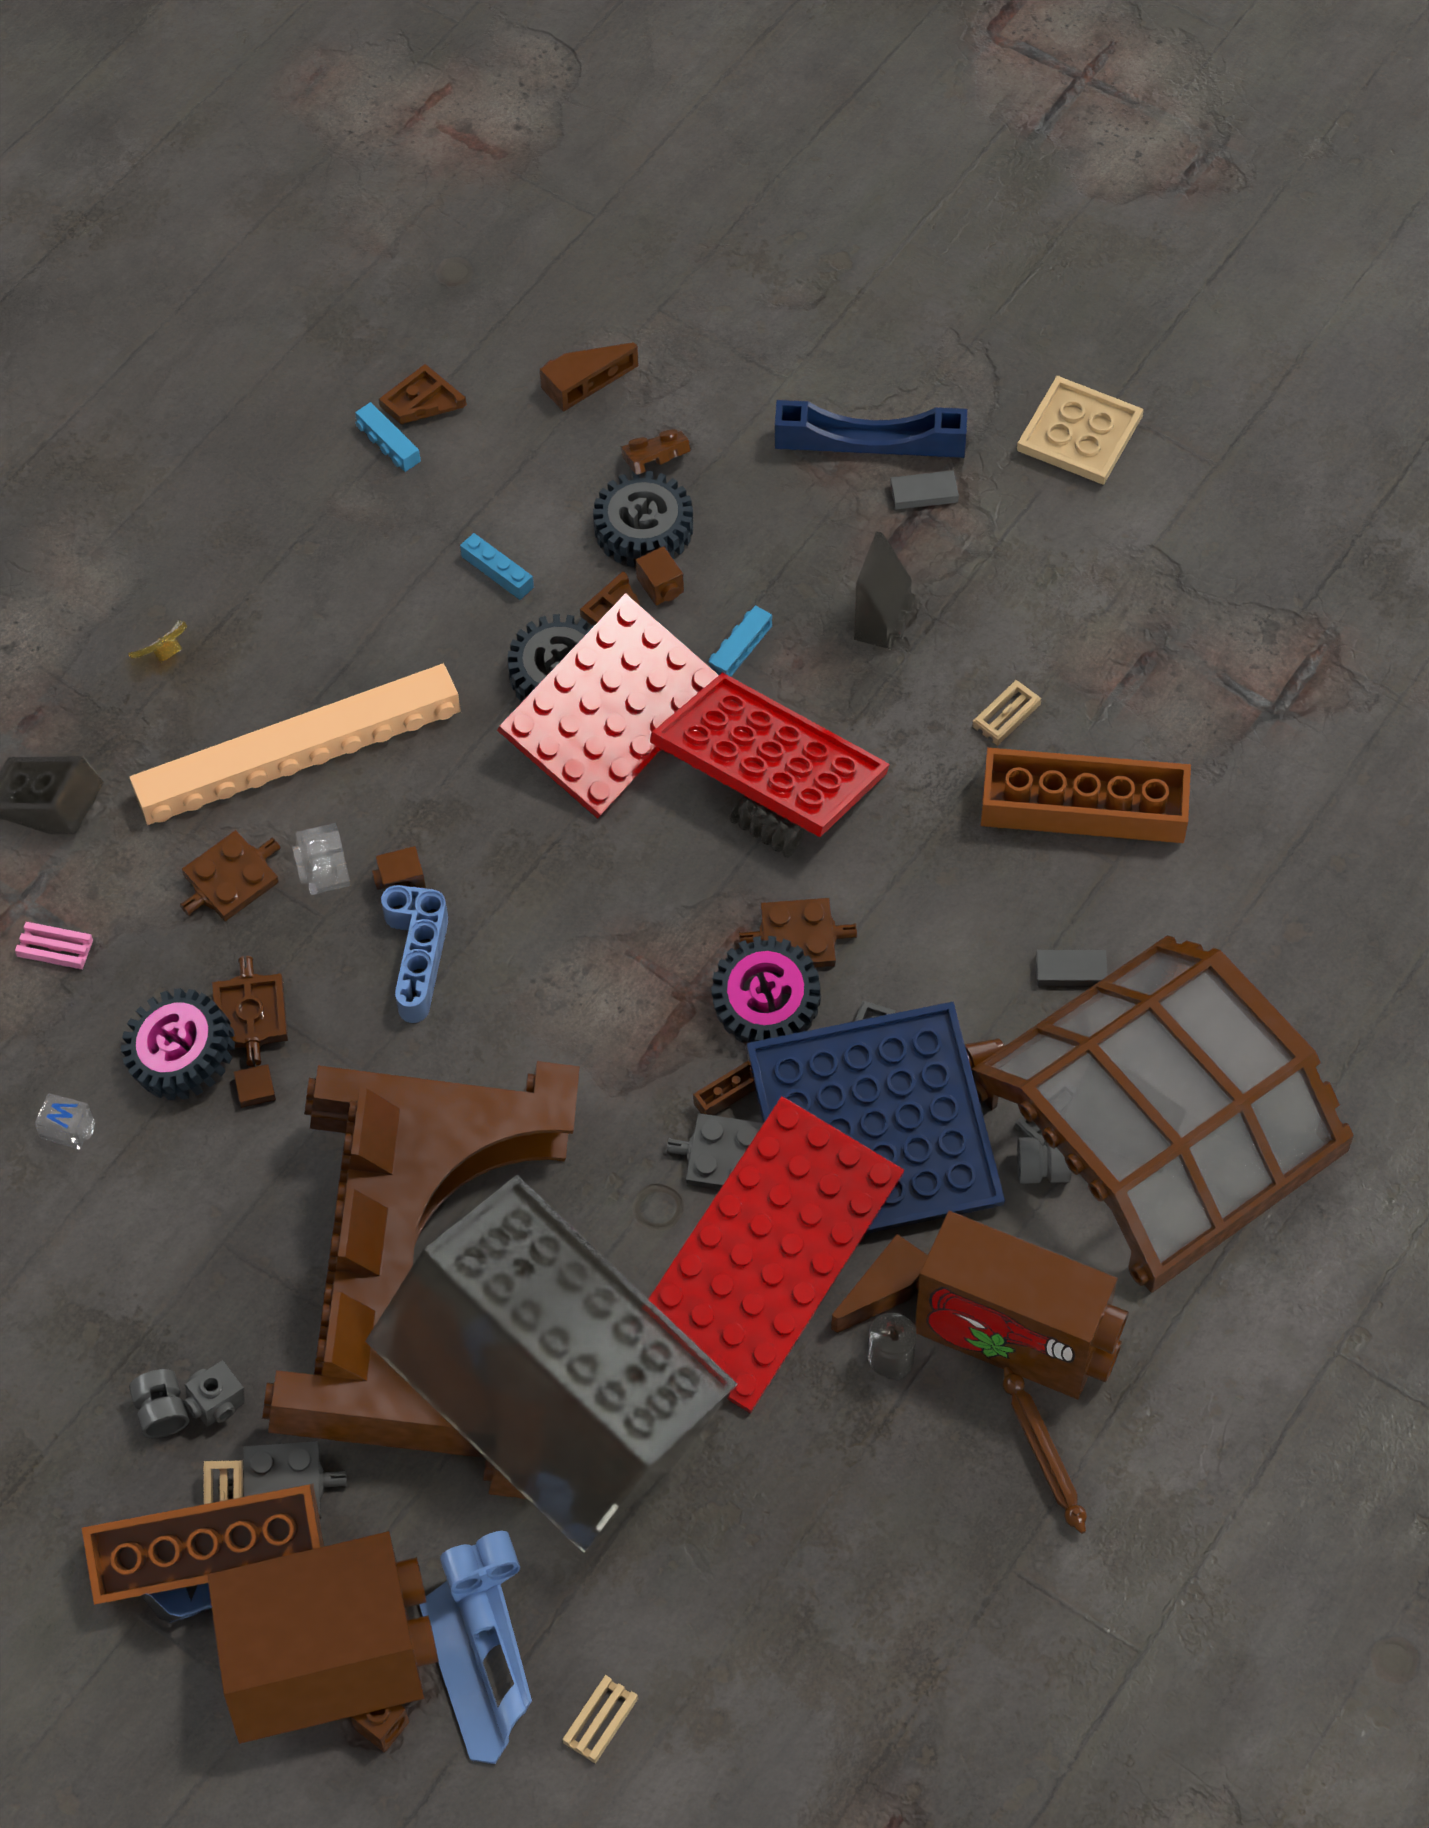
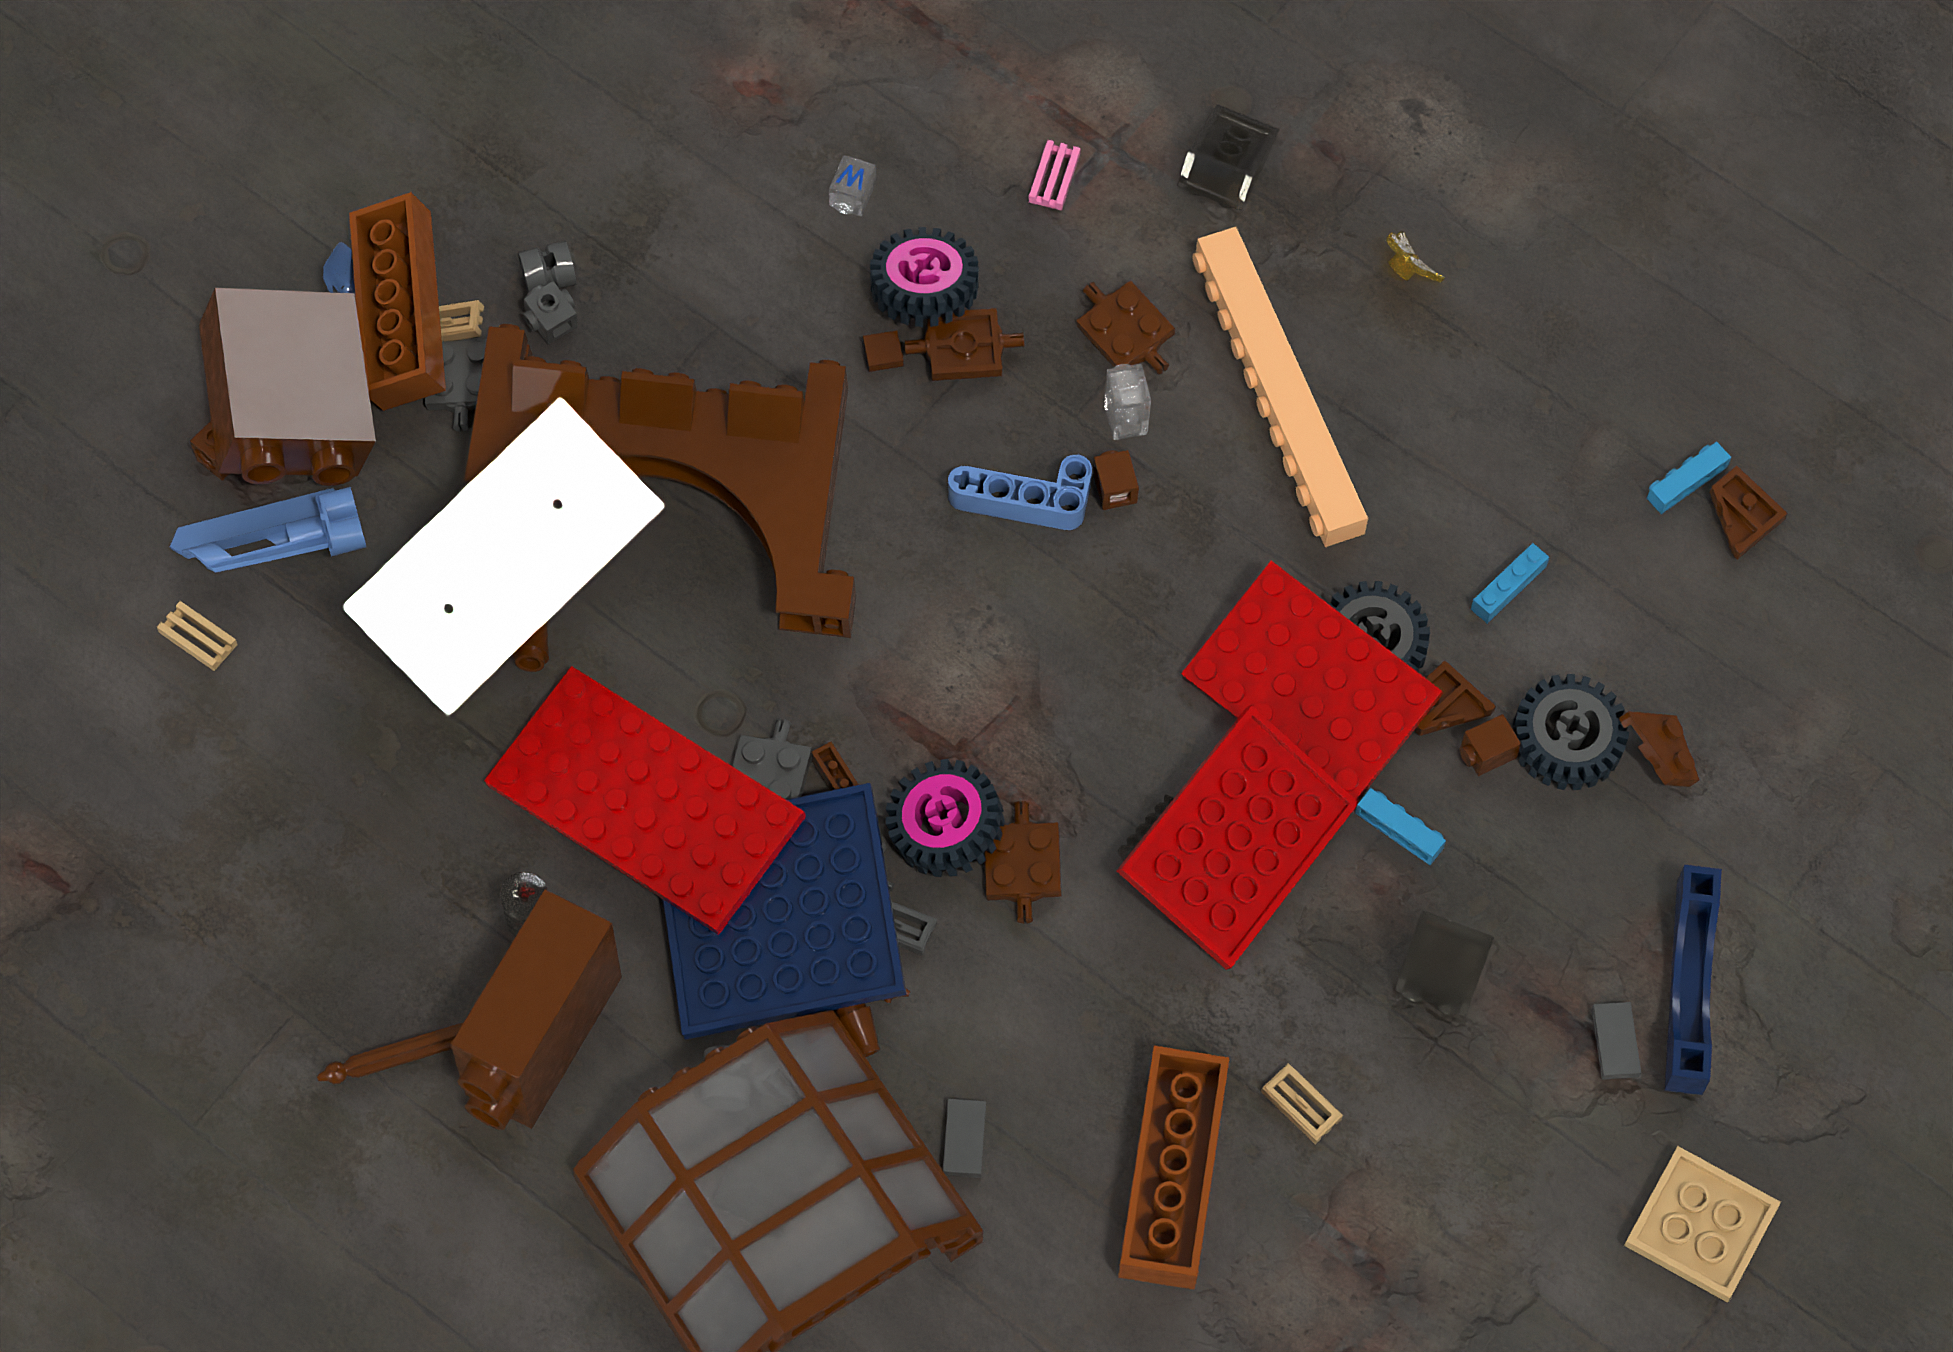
camera: 90 degrees right, 5 degrees up
(584, 372) = (1775, 673): reddish brown slope -> none
(884, 1285) = (629, 926): reddish brown slope -> none

